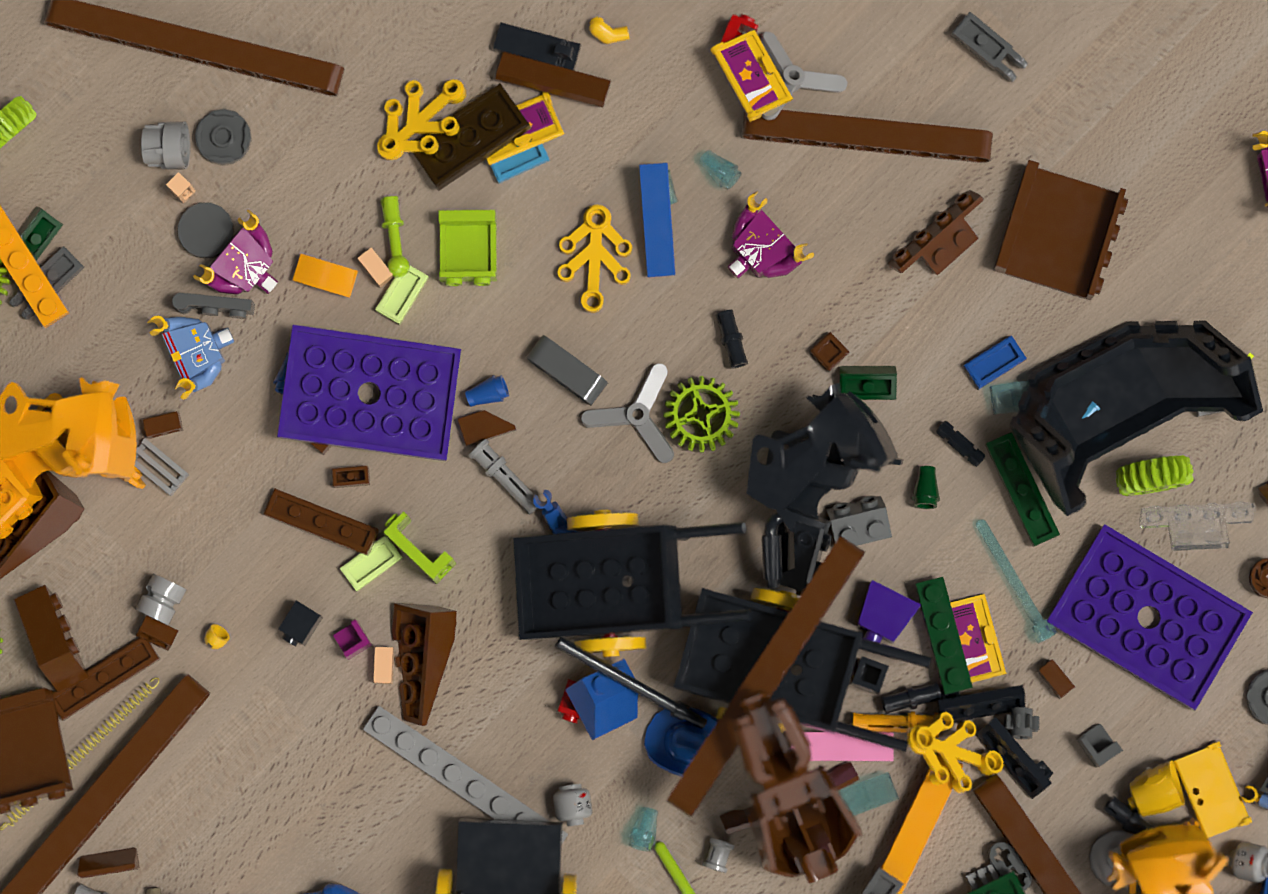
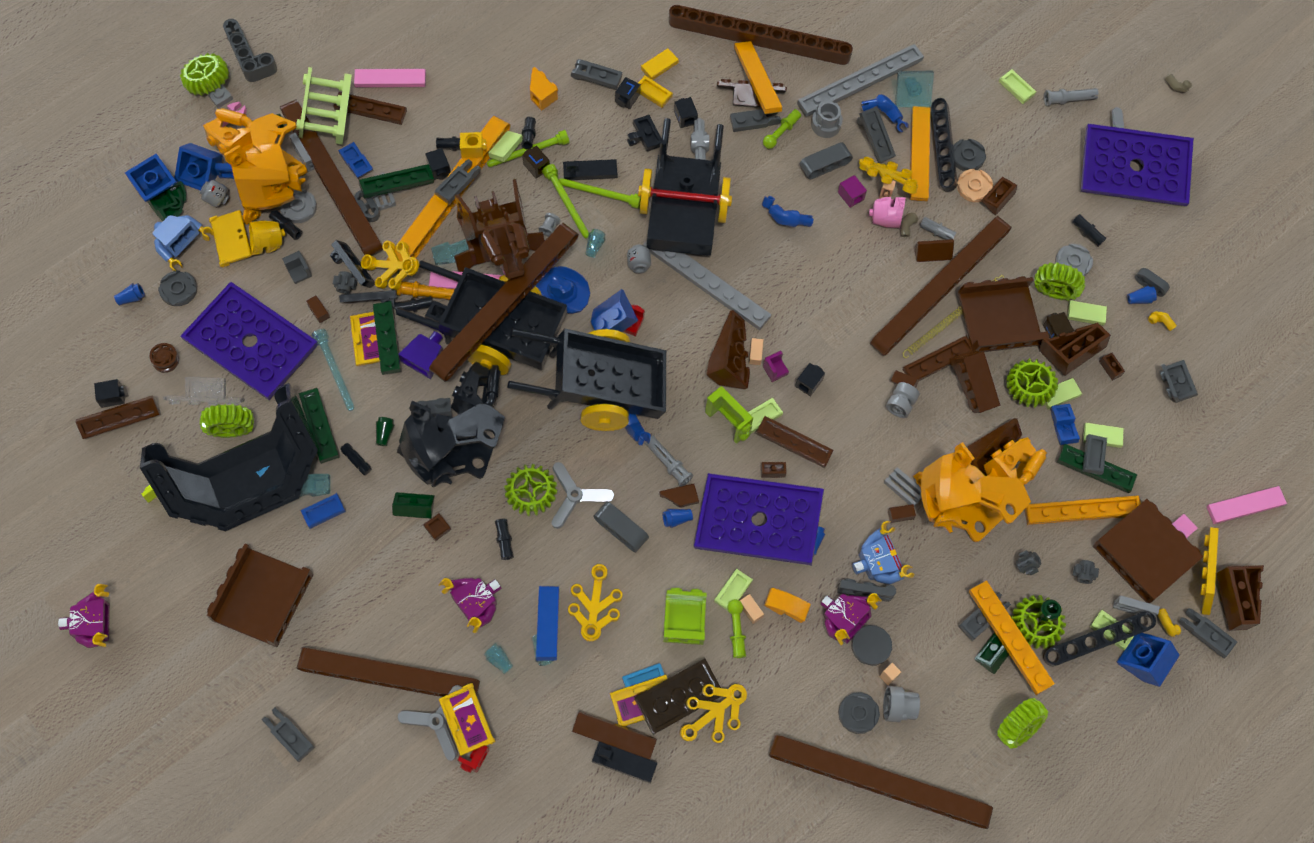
camera: 175 degrees right, 15 degrees down
(216, 636) = (863, 374): yellow hinge -> none
(605, 33) = (571, 767): yellow arm -> none
(678, 709) = (596, 316): black bar -> none
(943, 239) = (345, 597): reddish brown bracket -> none

